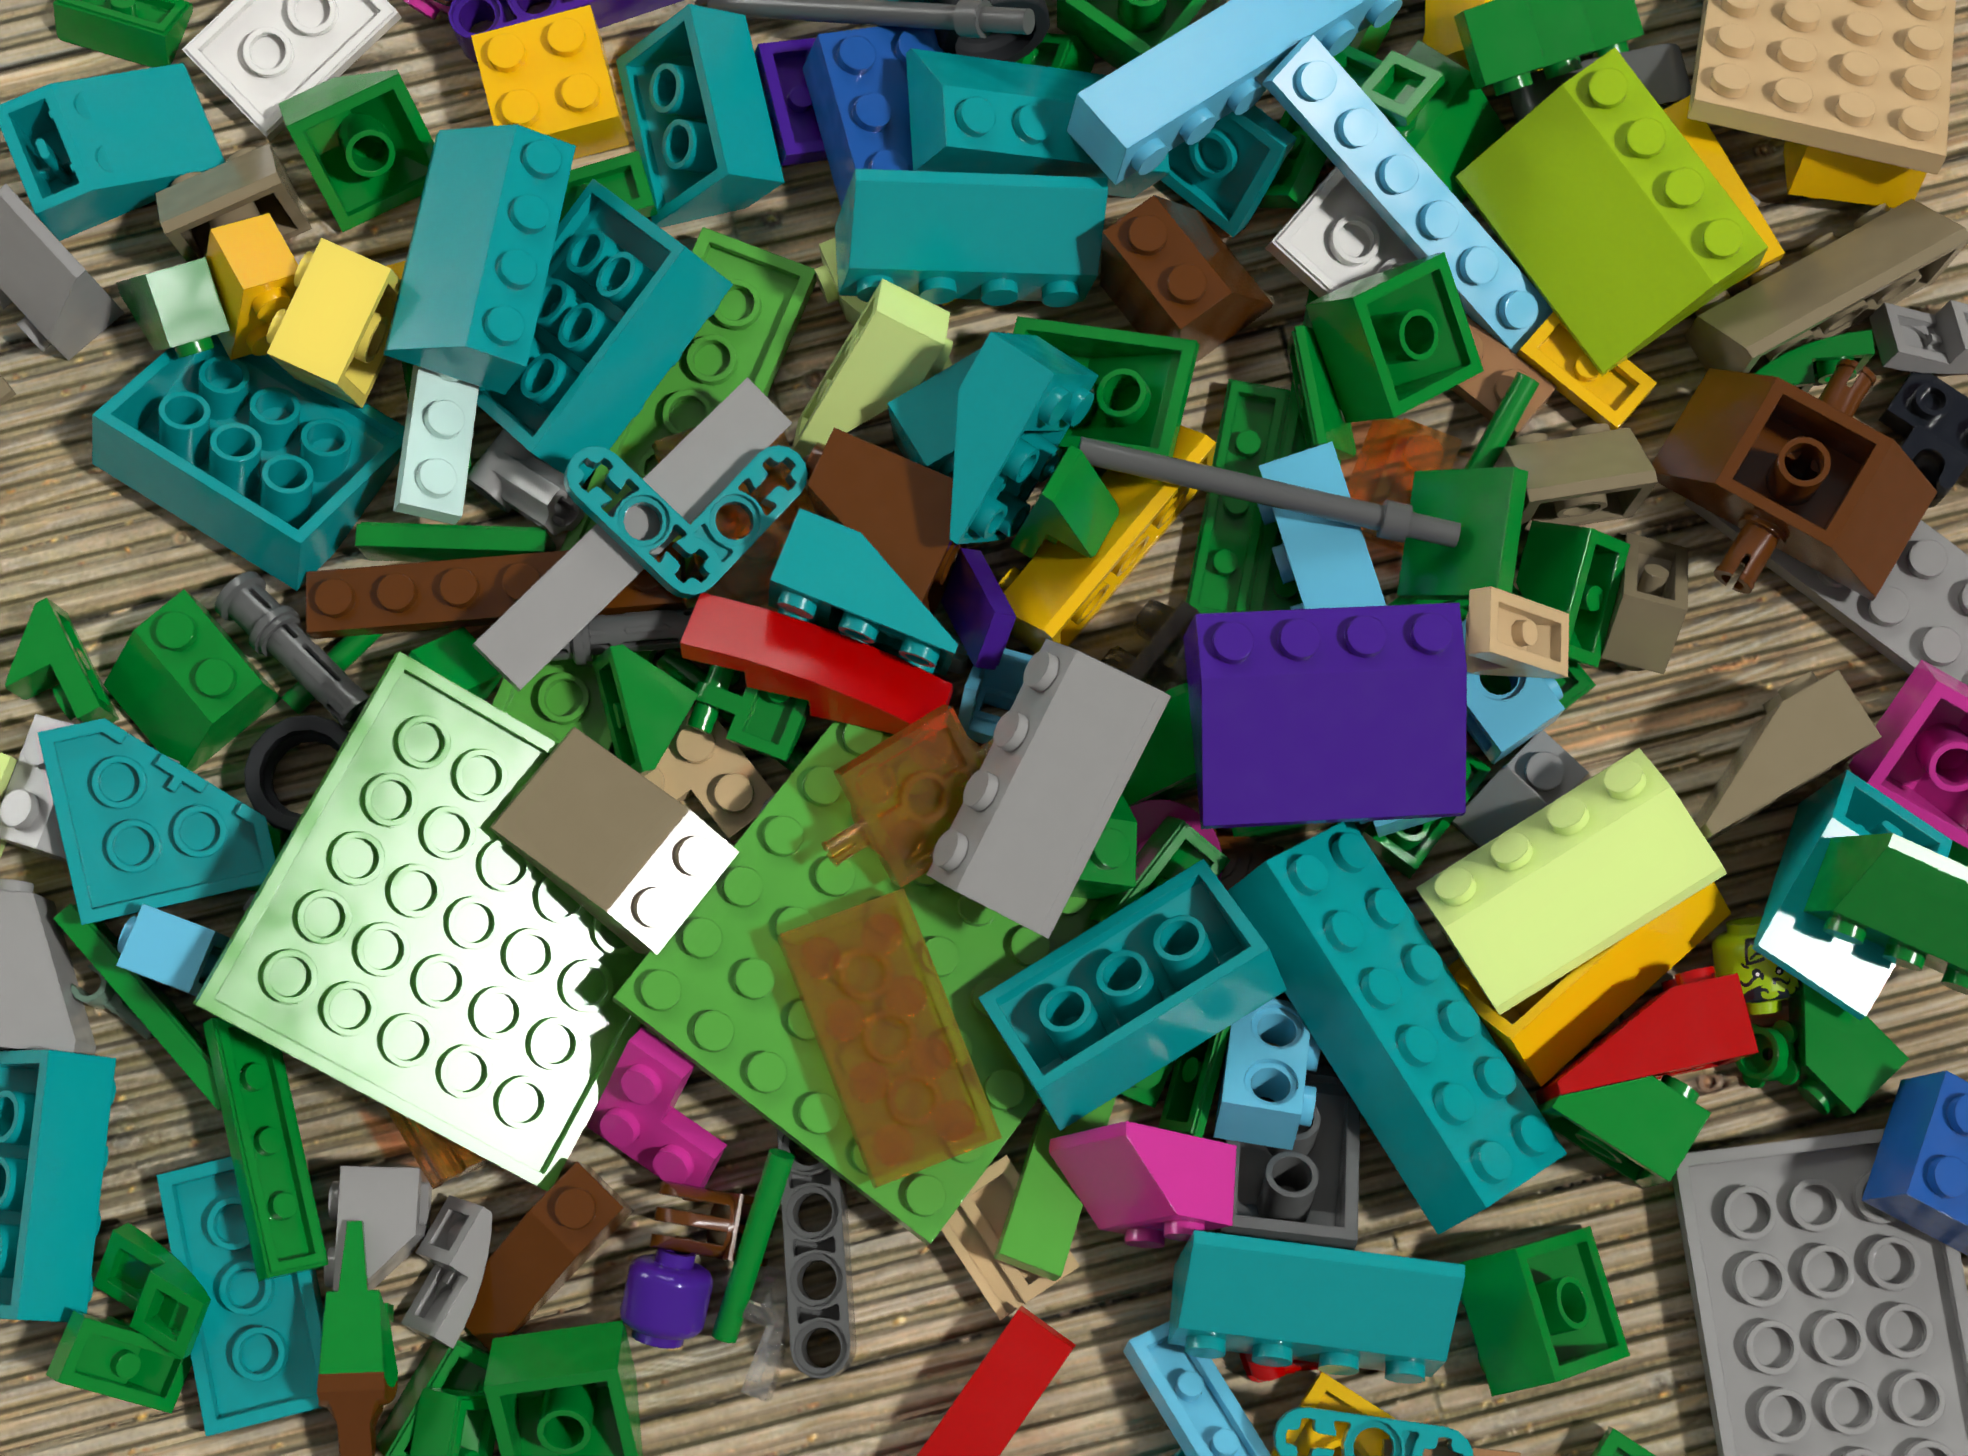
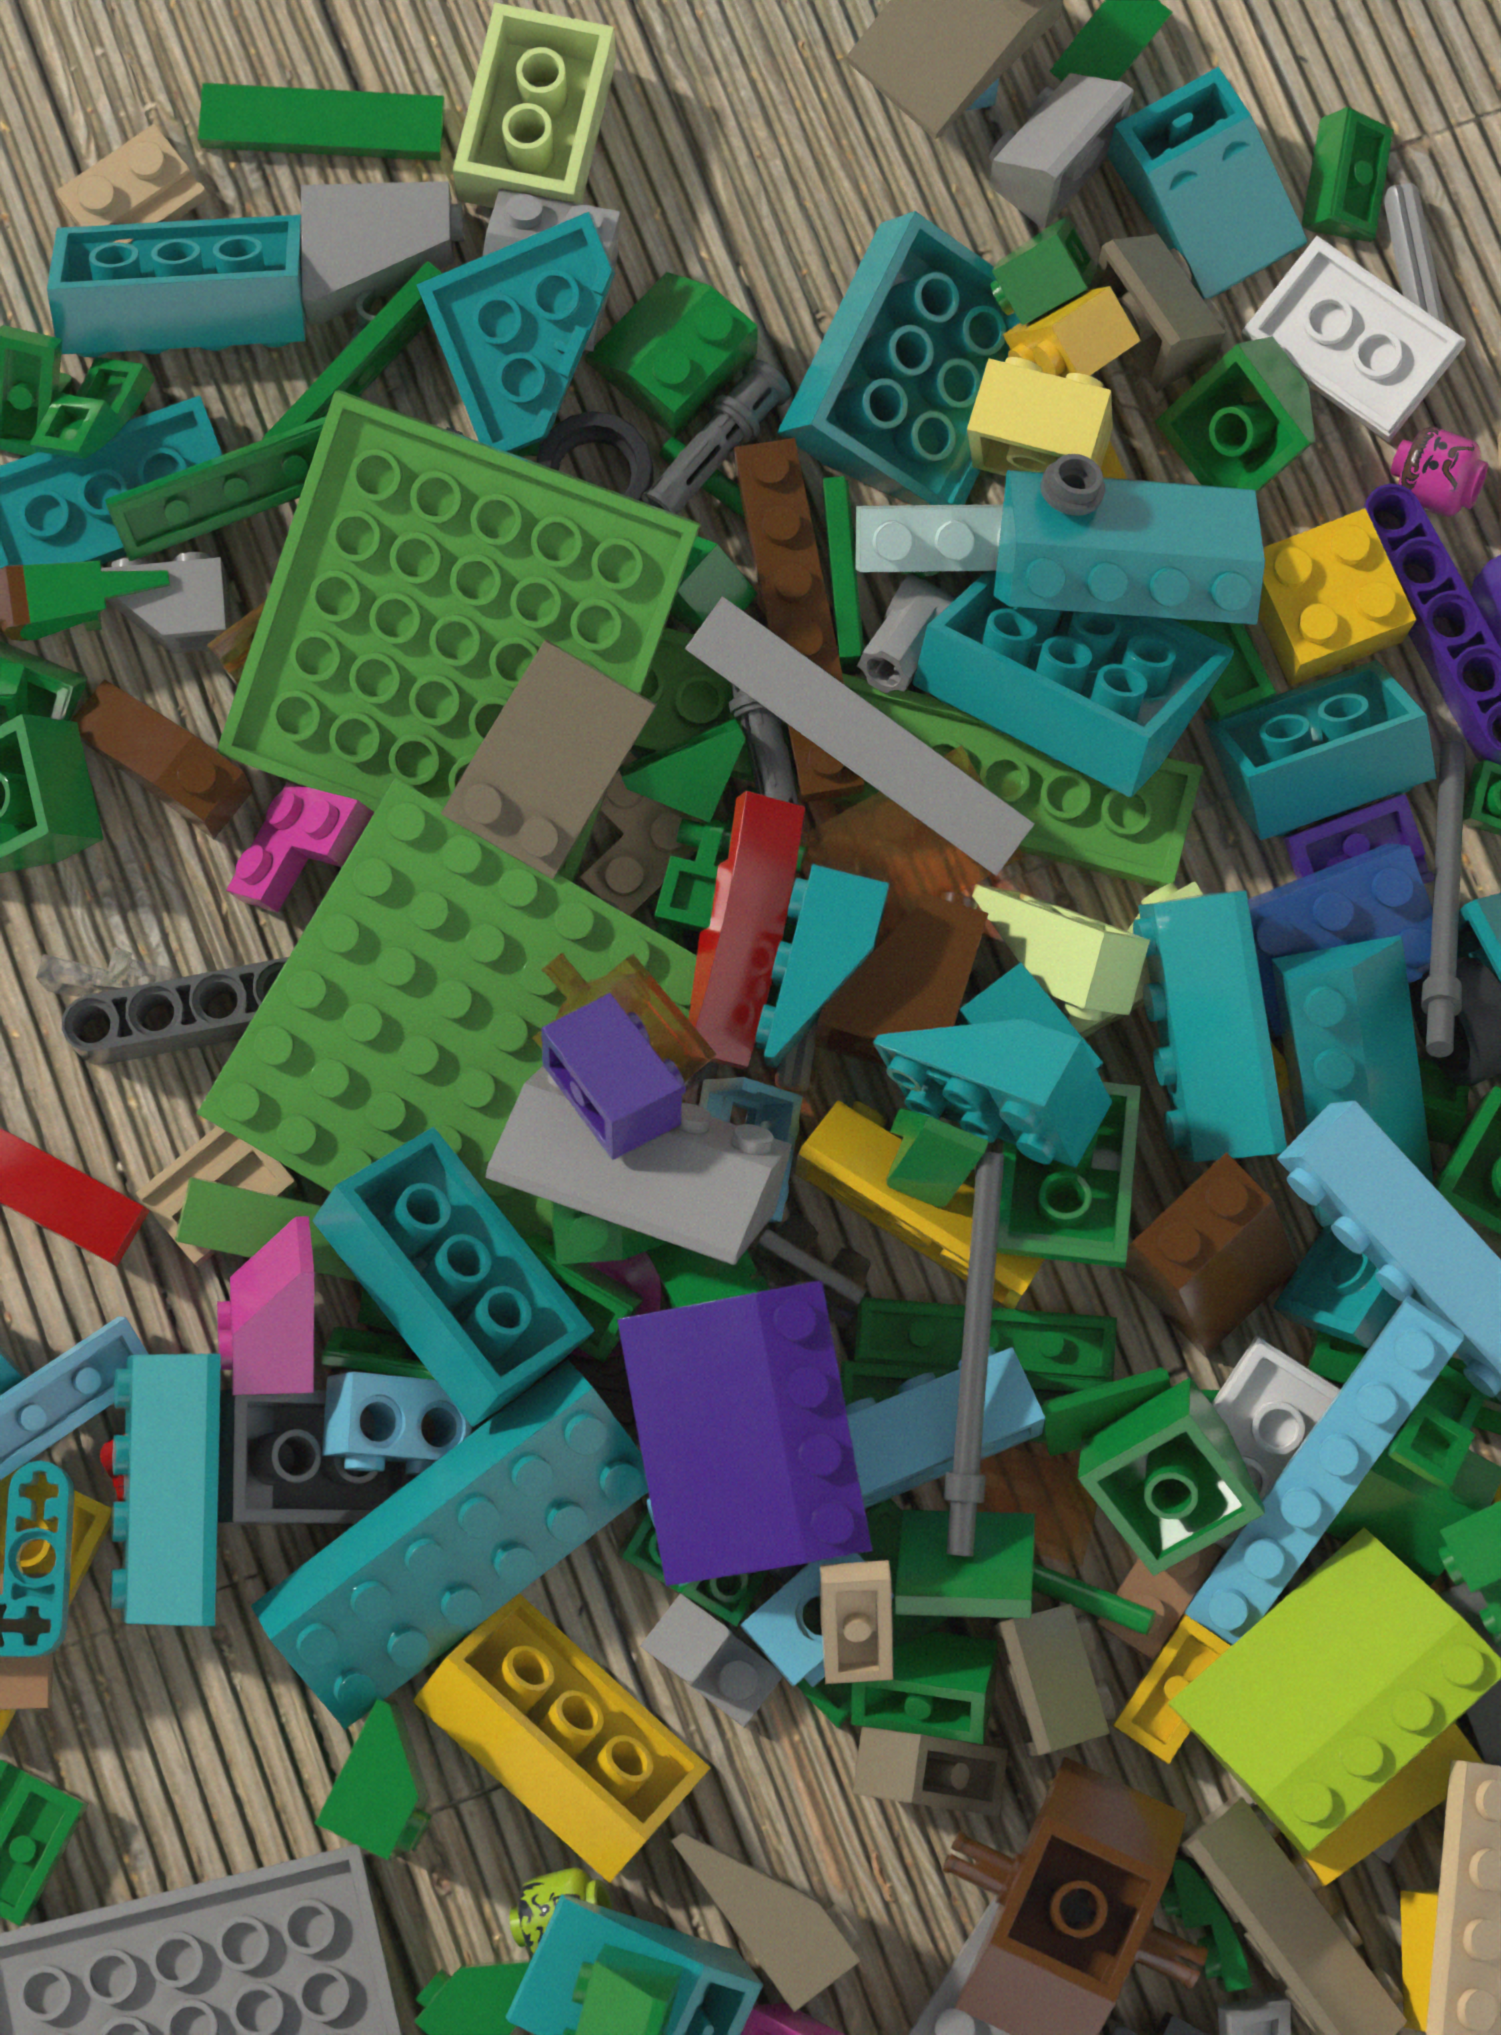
camera: 75 degrees right, 0 degrees up
(55, 655) = (688, 223): green slope -> none
(169, 949) = (405, 370): medium azure brick -> none
(413, 286) = (1073, 485): none -> dark grey plate
(459, 1250) = (155, 680): light grey slope -> none
(666, 1298) = (129, 876): dark purple head -> none
(699, 536) = (864, 799): teal beam -> none
(720, 1225) = (202, 917): reddish brown arm -> none
(753, 1245) = (183, 948): green bar -> none
(889, 1038) = (382, 1043): clear orange plate -> none
(964, 794) = (613, 1075): none -> dark purple brick
(978, 609) = (829, 1086): dark purple tile -> none
(1542, 1312) = (192, 1724): green slope -> none
(1571, 880) = (617, 1707): yellowish green slope -> none
(1685, 1029) = (470, 1820): red slope -> none
(1782, 1067) = (472, 1934): green plate -> none

